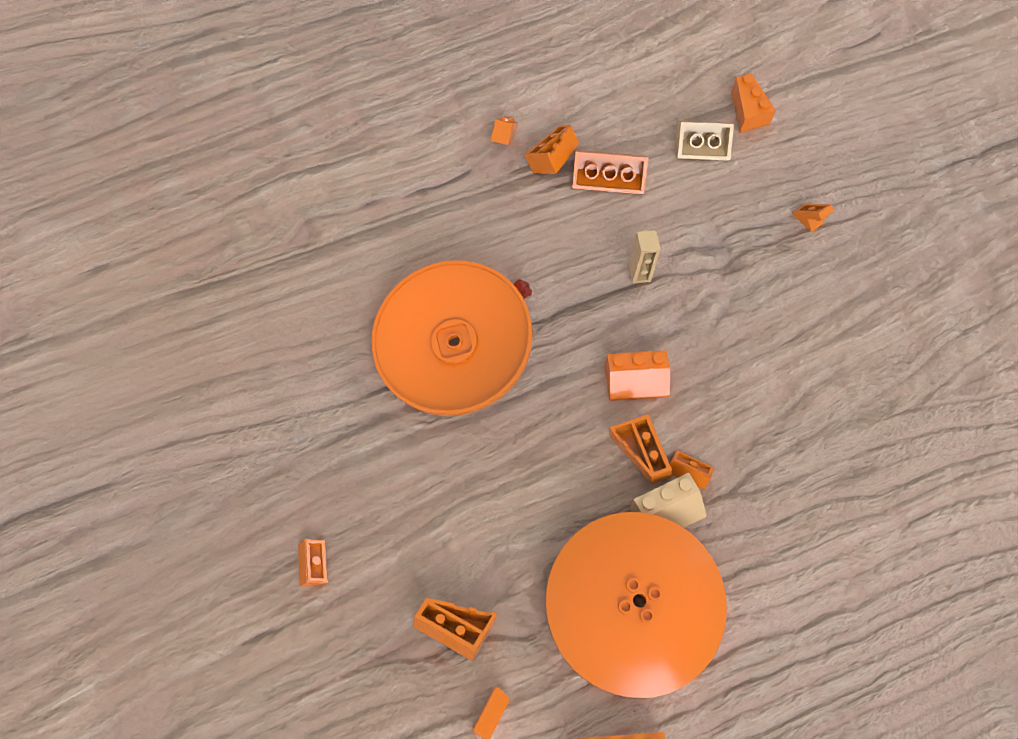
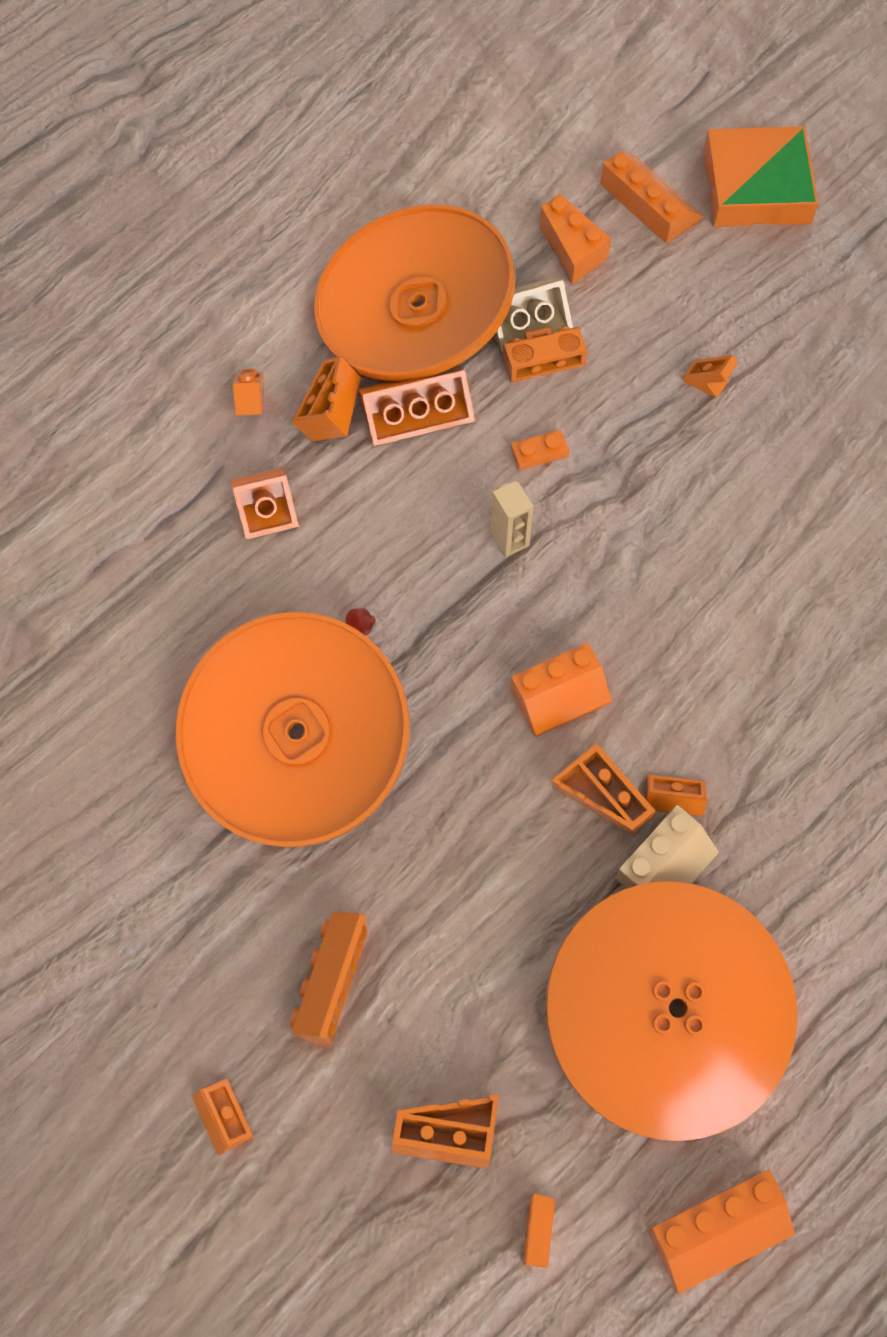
camera: 15 degrees left, 5 degrees up
(416, 500) = (330, 978): none -> orange slope
(488, 199) = (264, 503): none -> orange slope
(653, 83) = (410, 256): none -> orange dish
(680, 225) = (540, 449): none -> orange plate
(705, 167) = (544, 353): none -> orange piece
(810, 94) = (648, 196): none -> orange slope
(891, 104) = (760, 176): none -> orange tile

